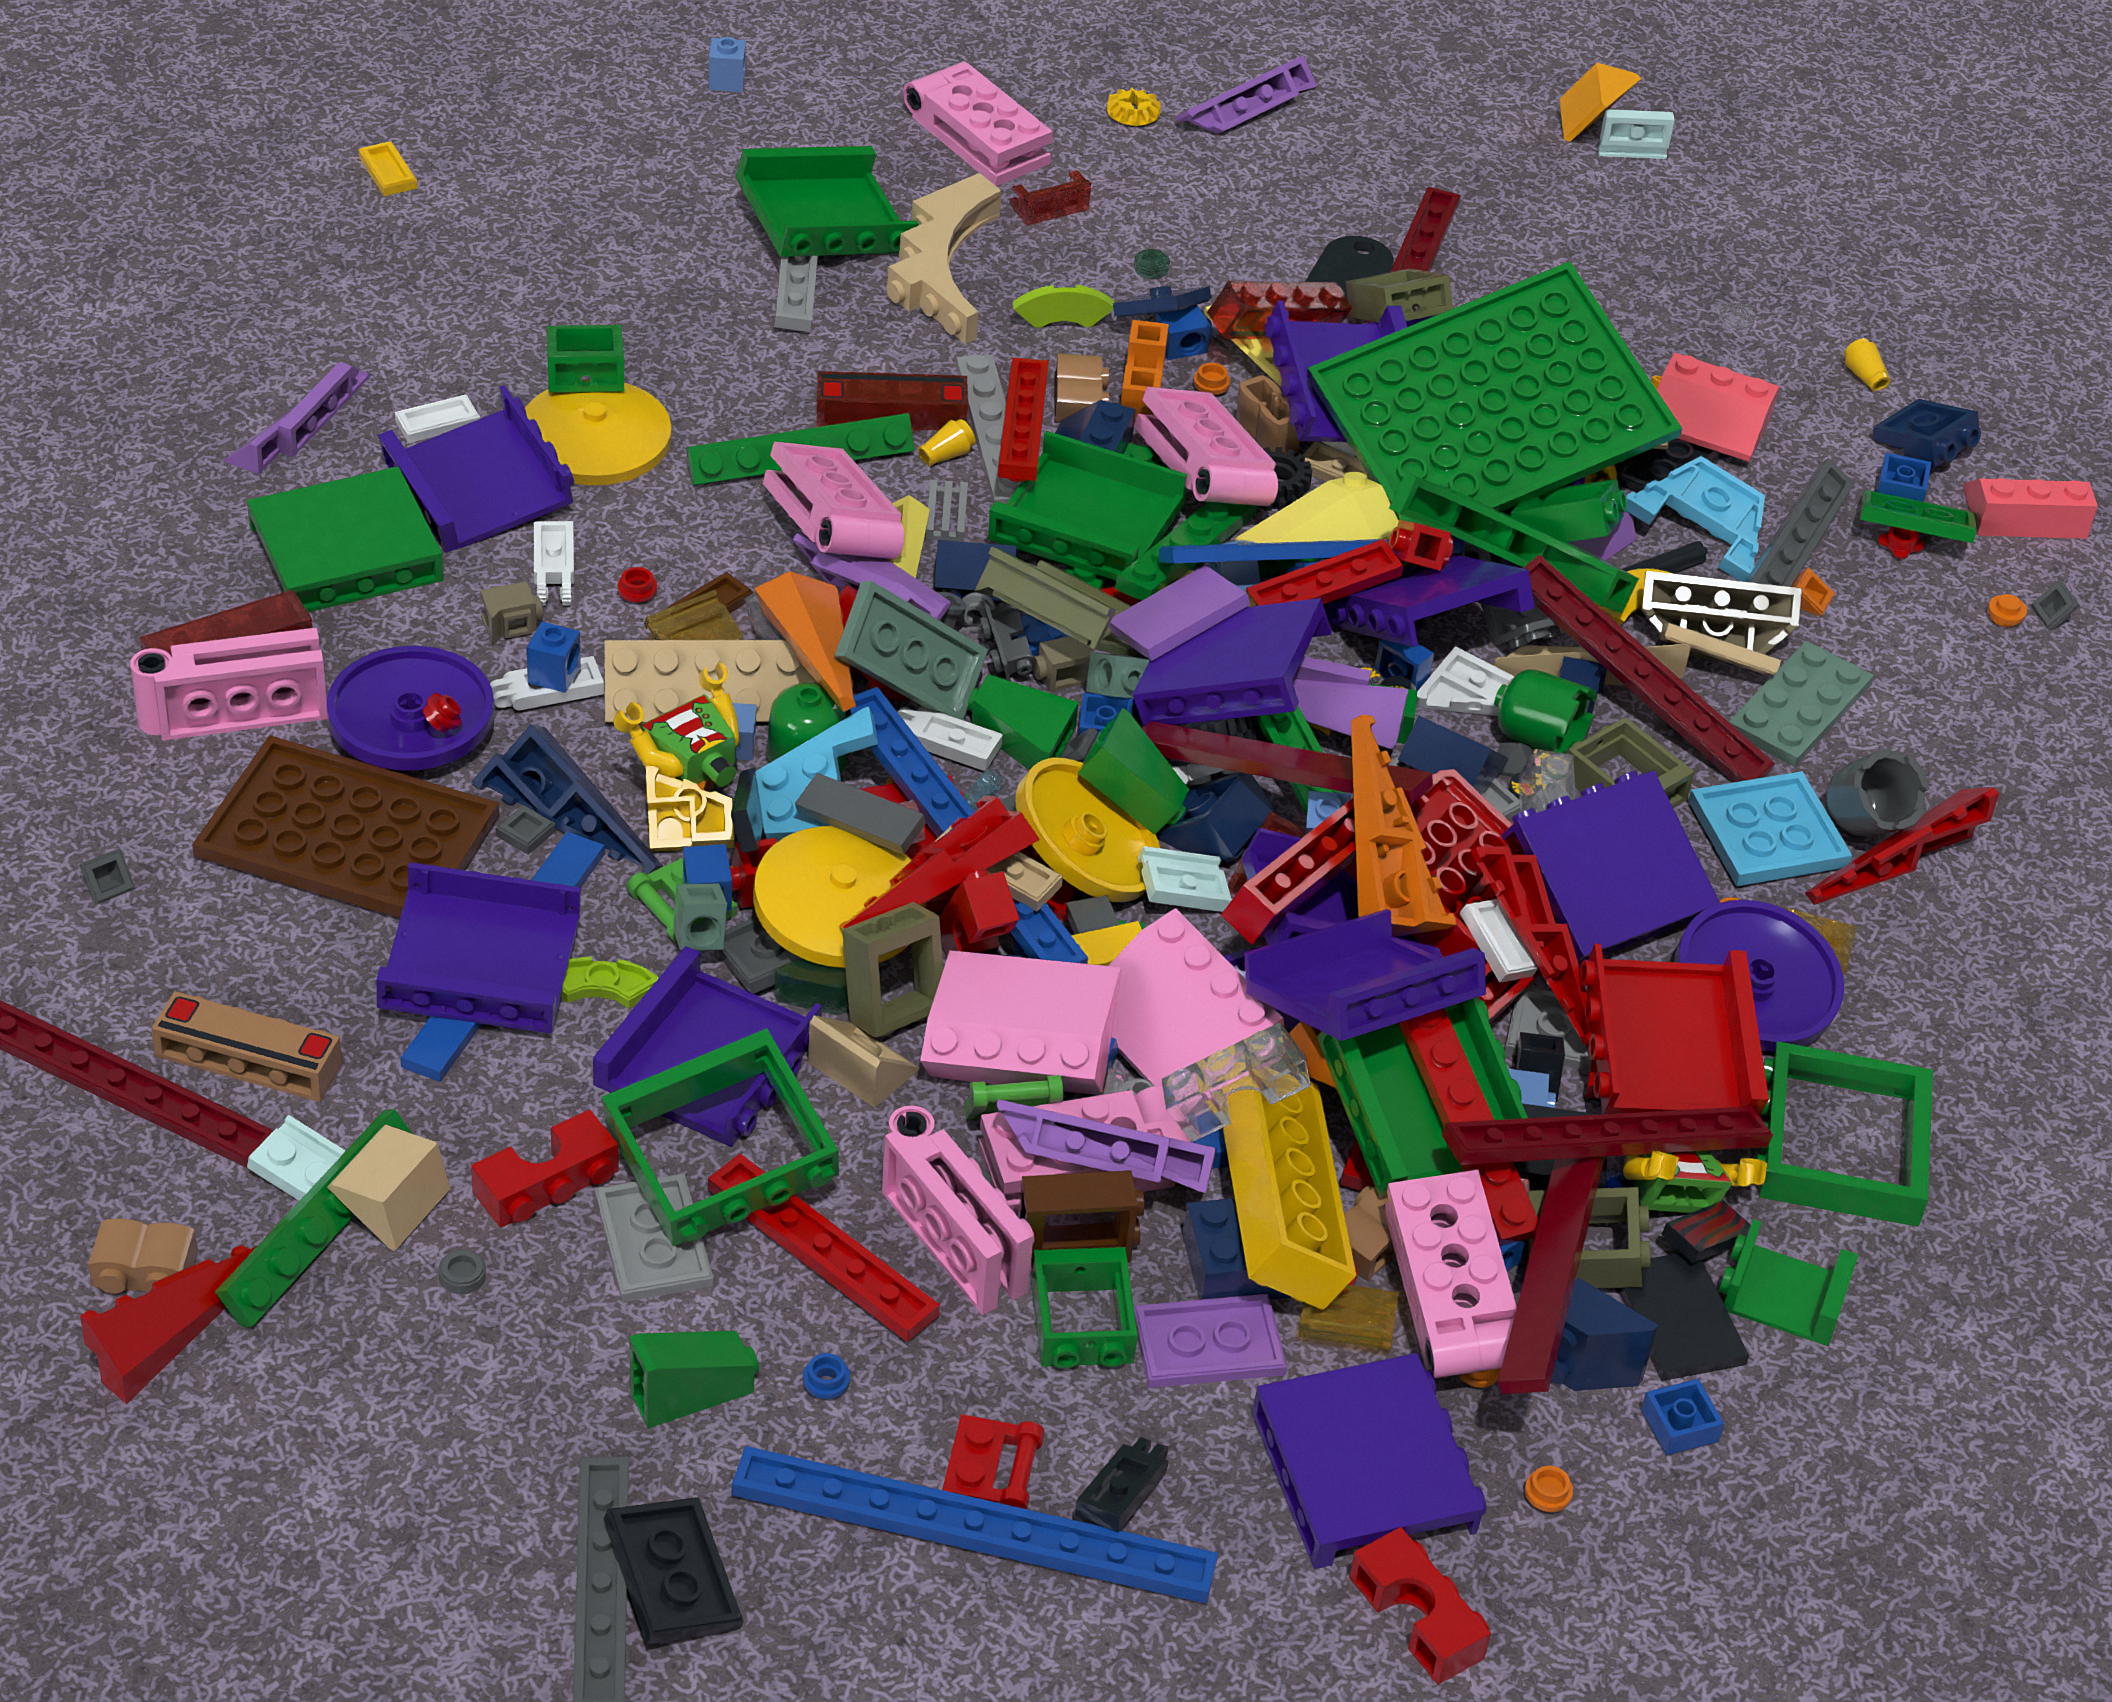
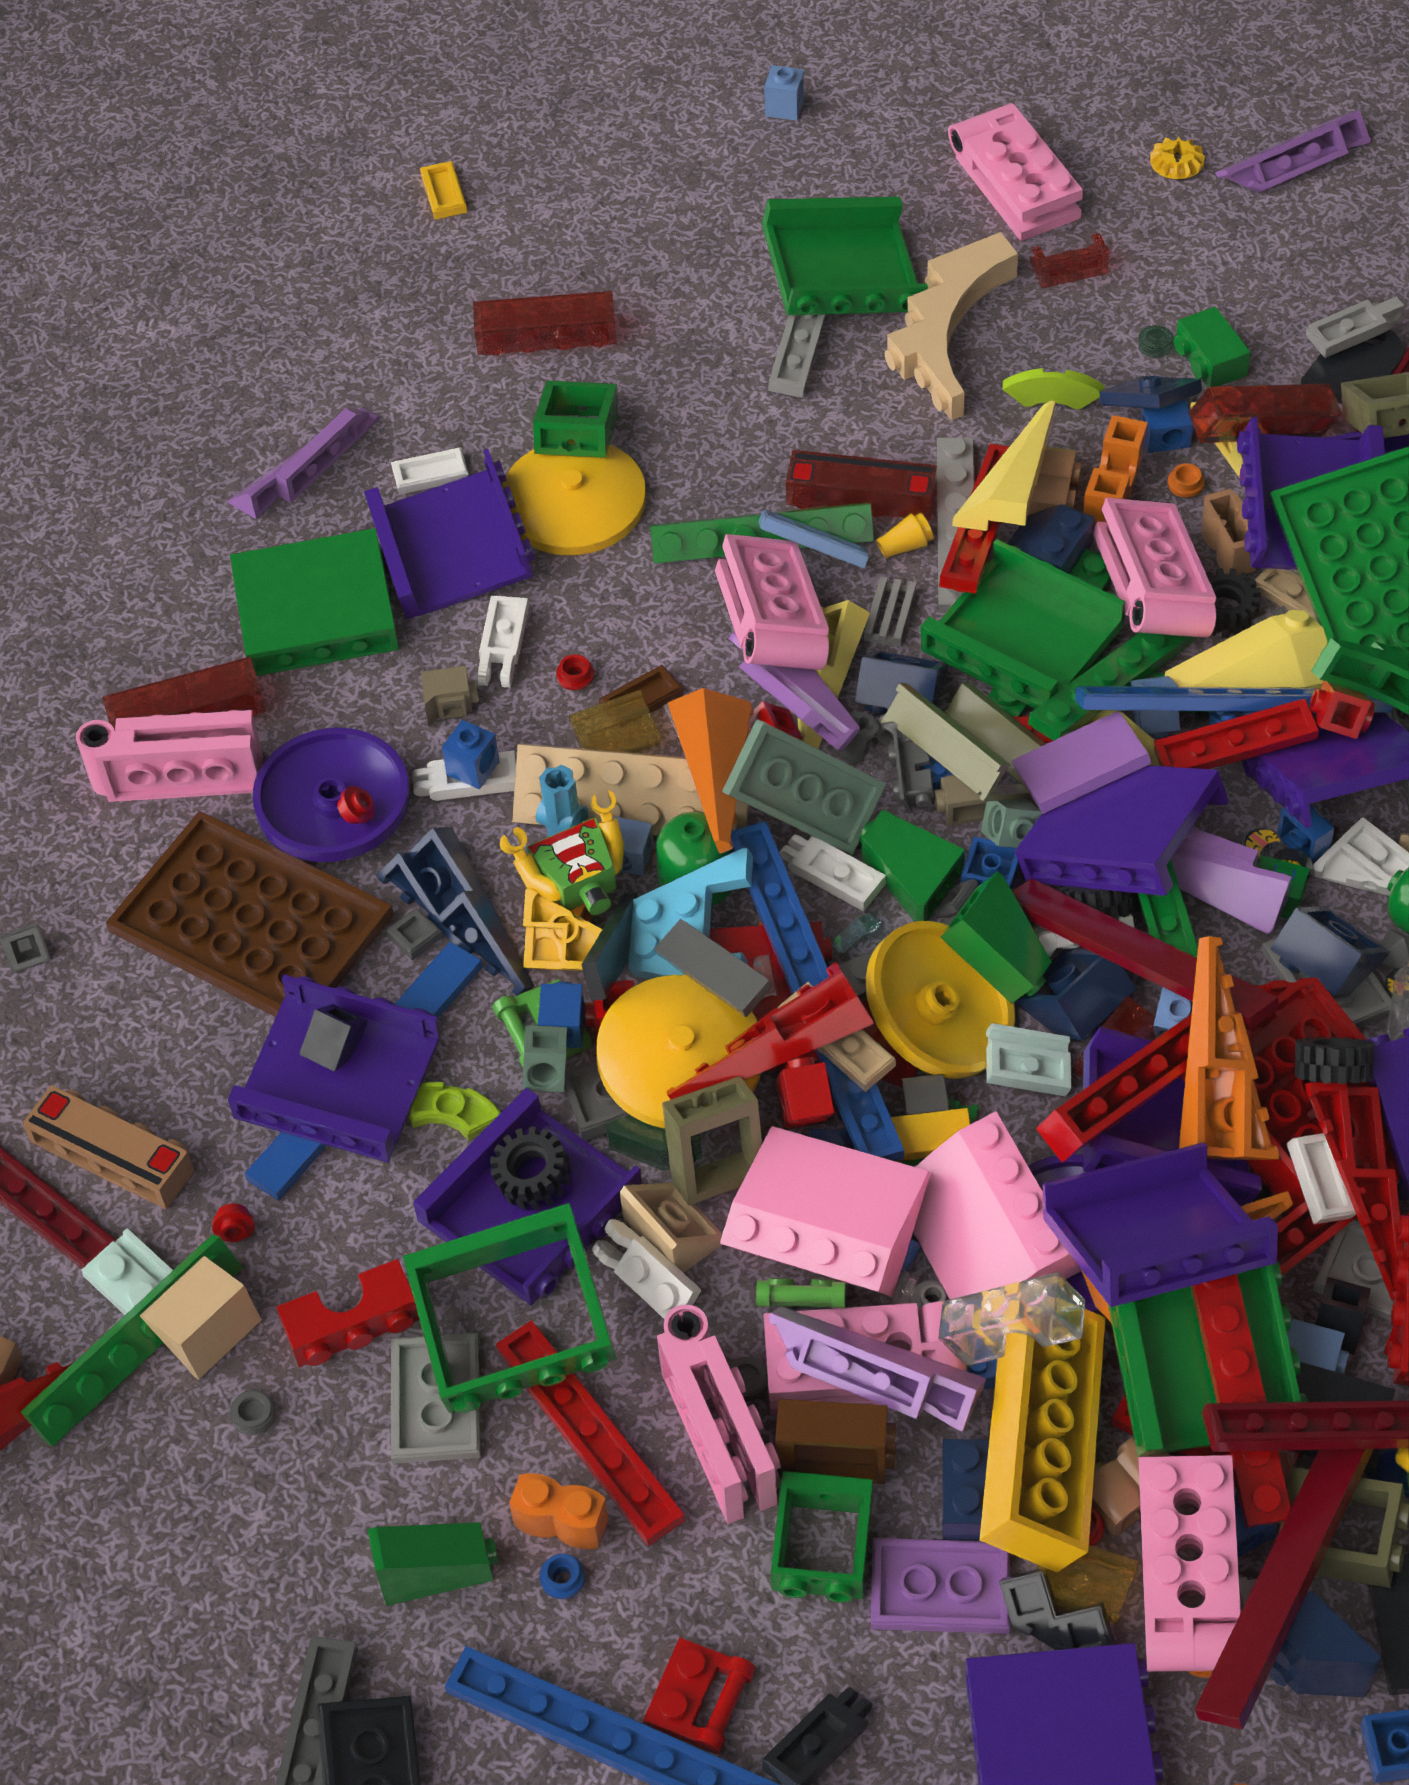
camera: 20 degrees right, 10 degrees up
(398, 1093) = (233, 1223): none -> red plate
(471, 918) = (332, 1036): none -> brick
(528, 278) = (544, 323): none -> clear red brick
(665, 680) = (559, 801): none -> dark azure piece
(699, 1001) = (525, 1148): none -> black tyre
(811, 1316) = (550, 1510): none -> orange brick
(849, 1100) = (645, 1269): none -> white hinge
(858, 446) = (813, 538): none -> medium blue tile
(1048, 381) = (1010, 484): none -> light yellow wedge
(1208, 260) = (1212, 348): none -> green brick
(1311, 1348) = (1036, 1613): none -> black tile
(1343, 236) = (1354, 325): none -> light grey hinge
(1492, 829) = (1334, 1060): none -> black tyre

